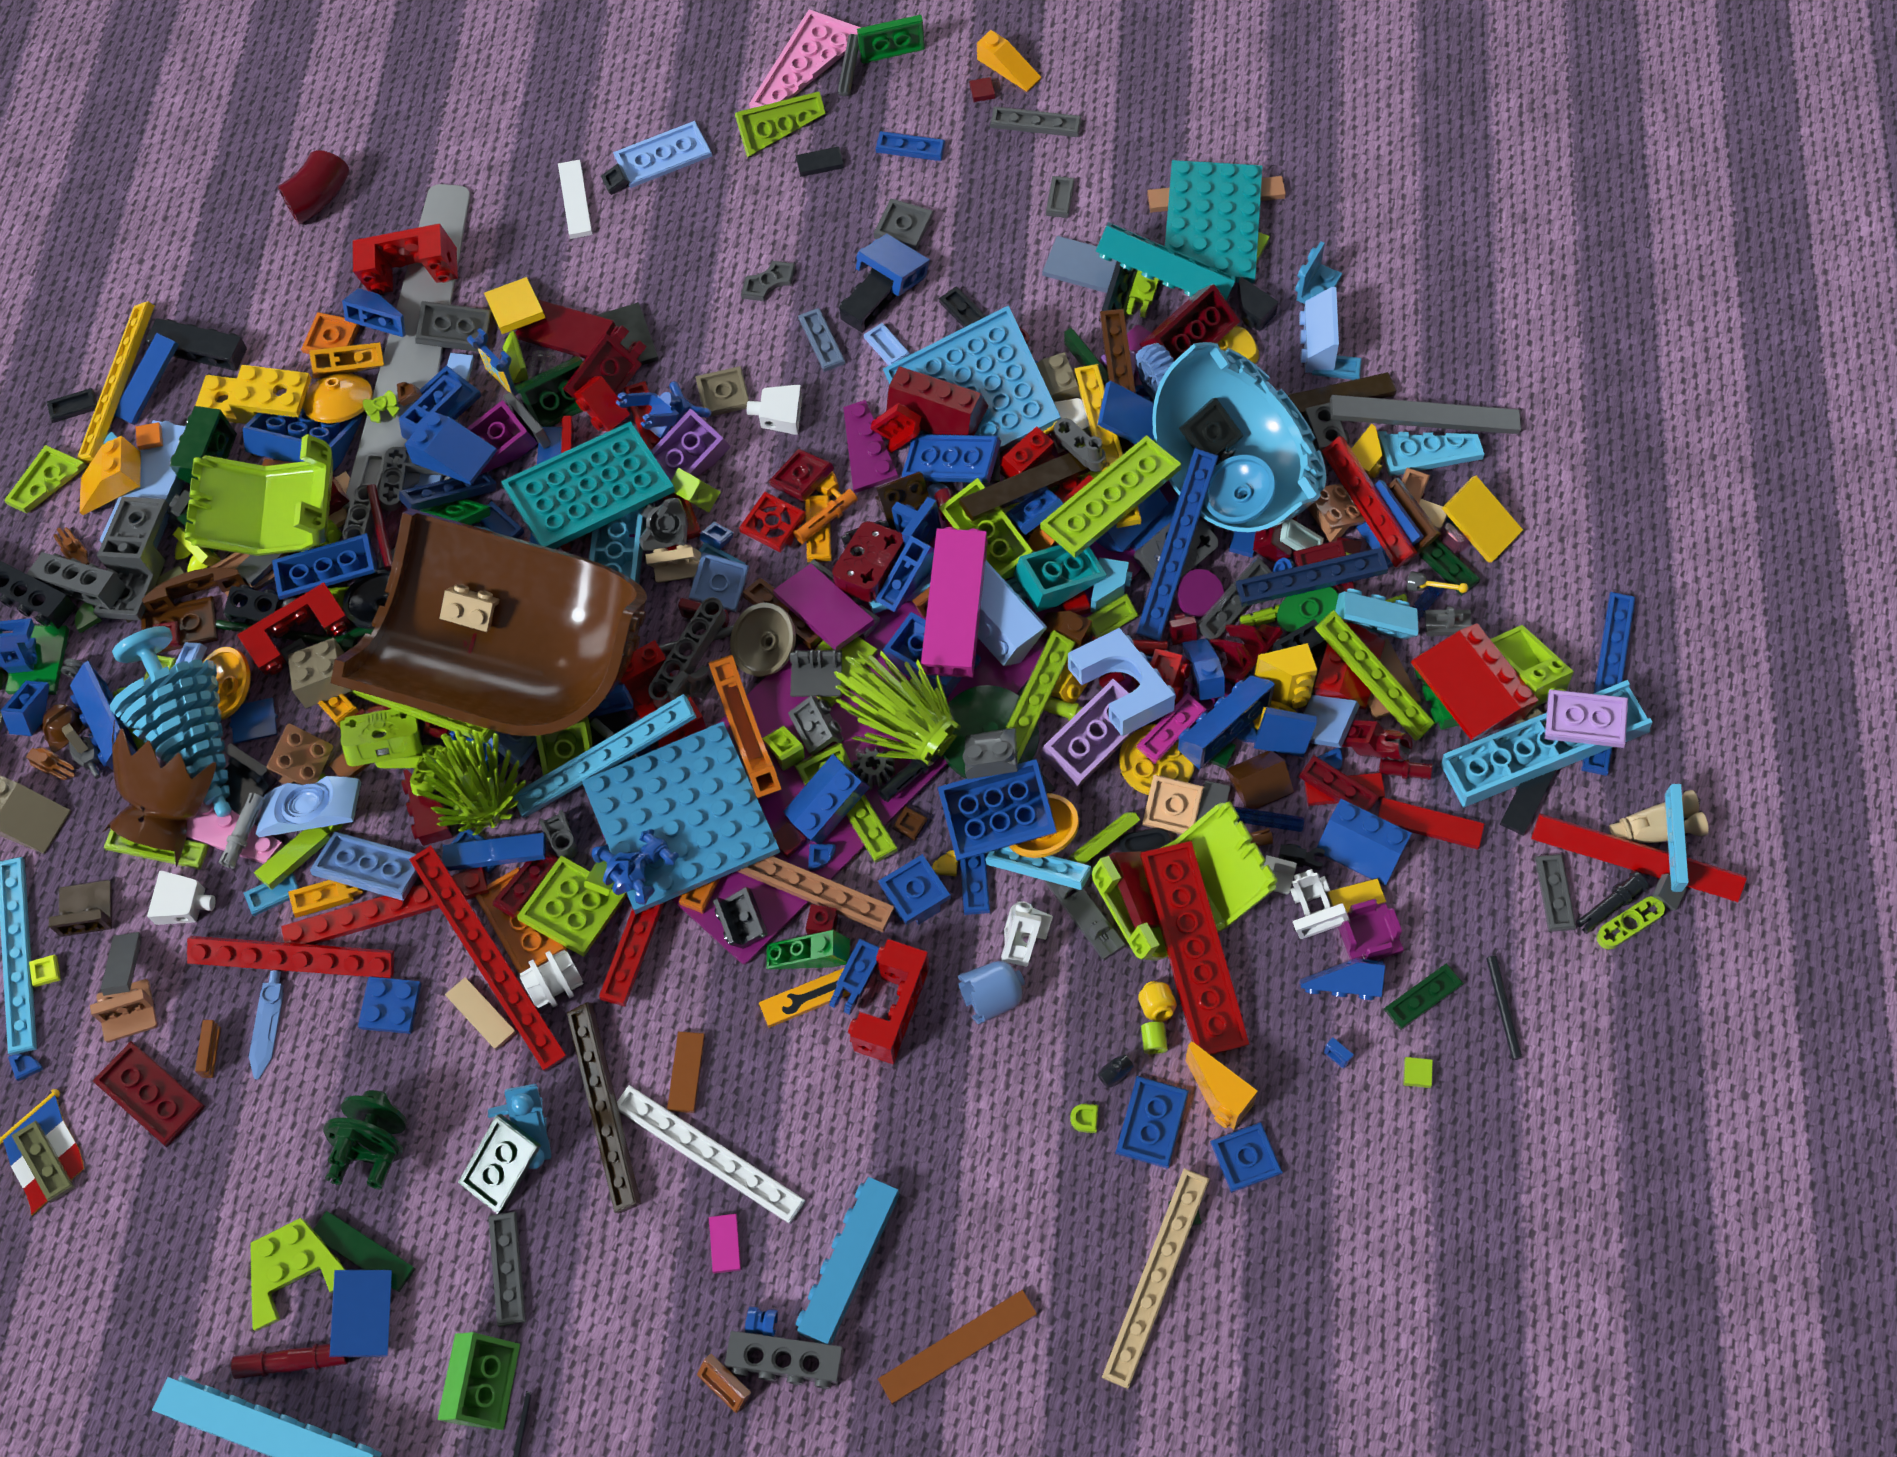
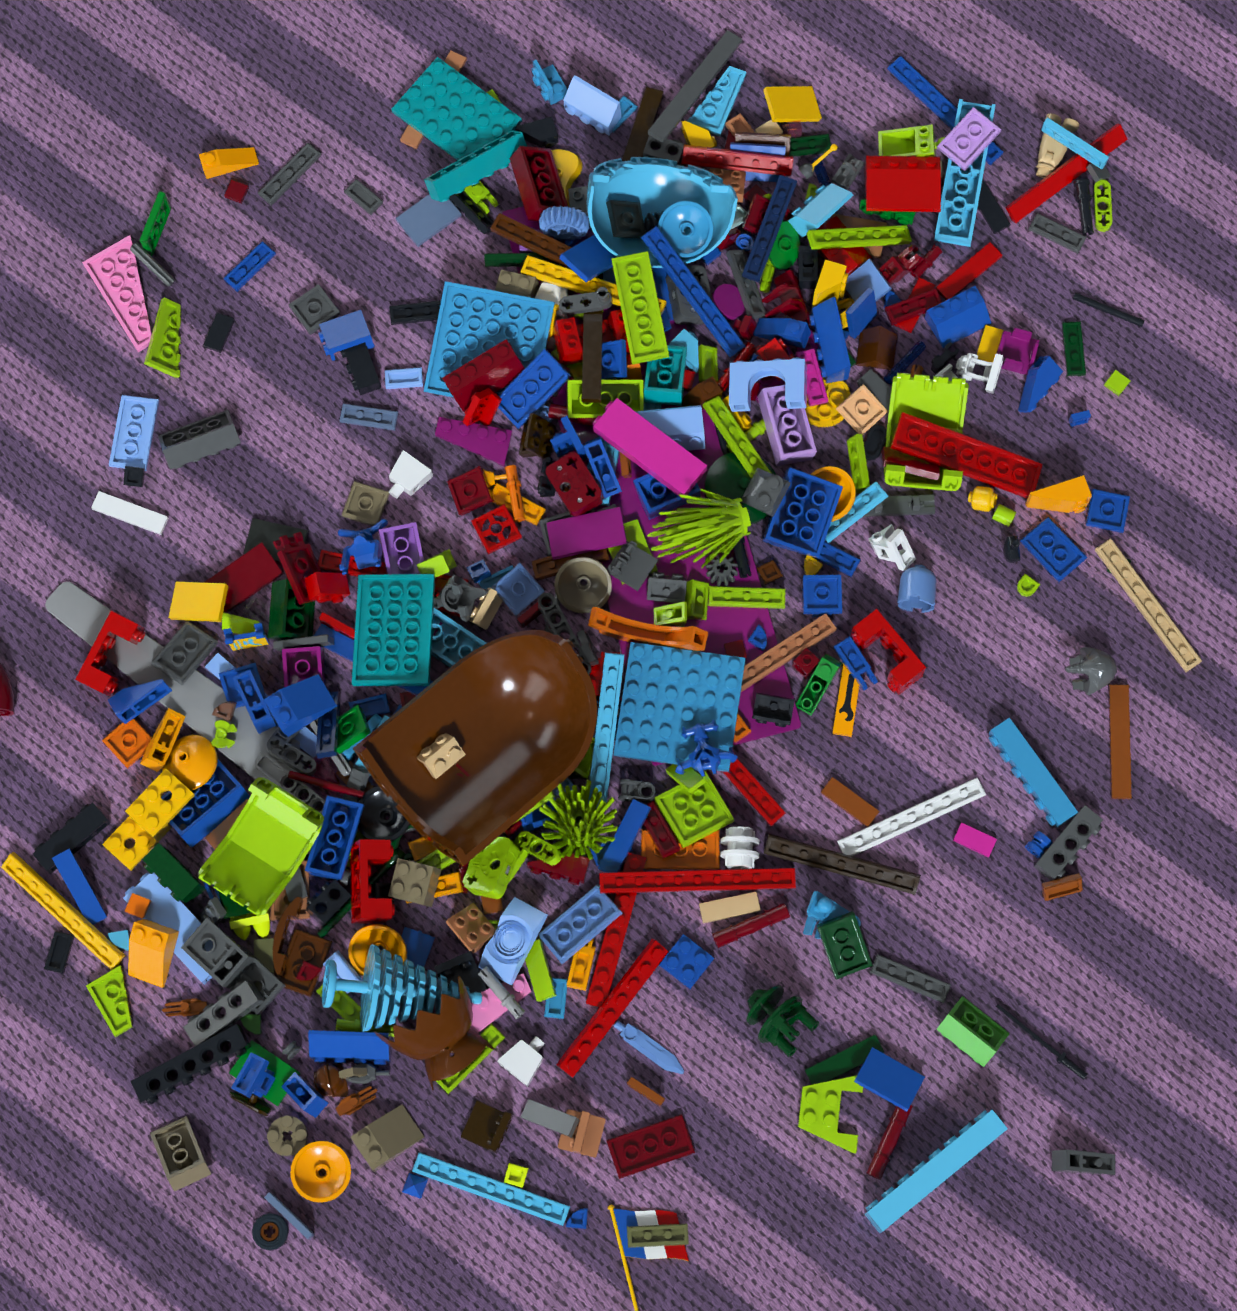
camera: 60 degrees left, 10 degrees up
(470, 1048) = (750, 925): none -> dark red piece
(690, 208) = (199, 439): none -> dark grey slope
(758, 286) = (295, 432): dark grey tile -> none
(826, 799) = (726, 611): blue slope -> none
(1028, 1258) = (1097, 665): none -> dark grey piece

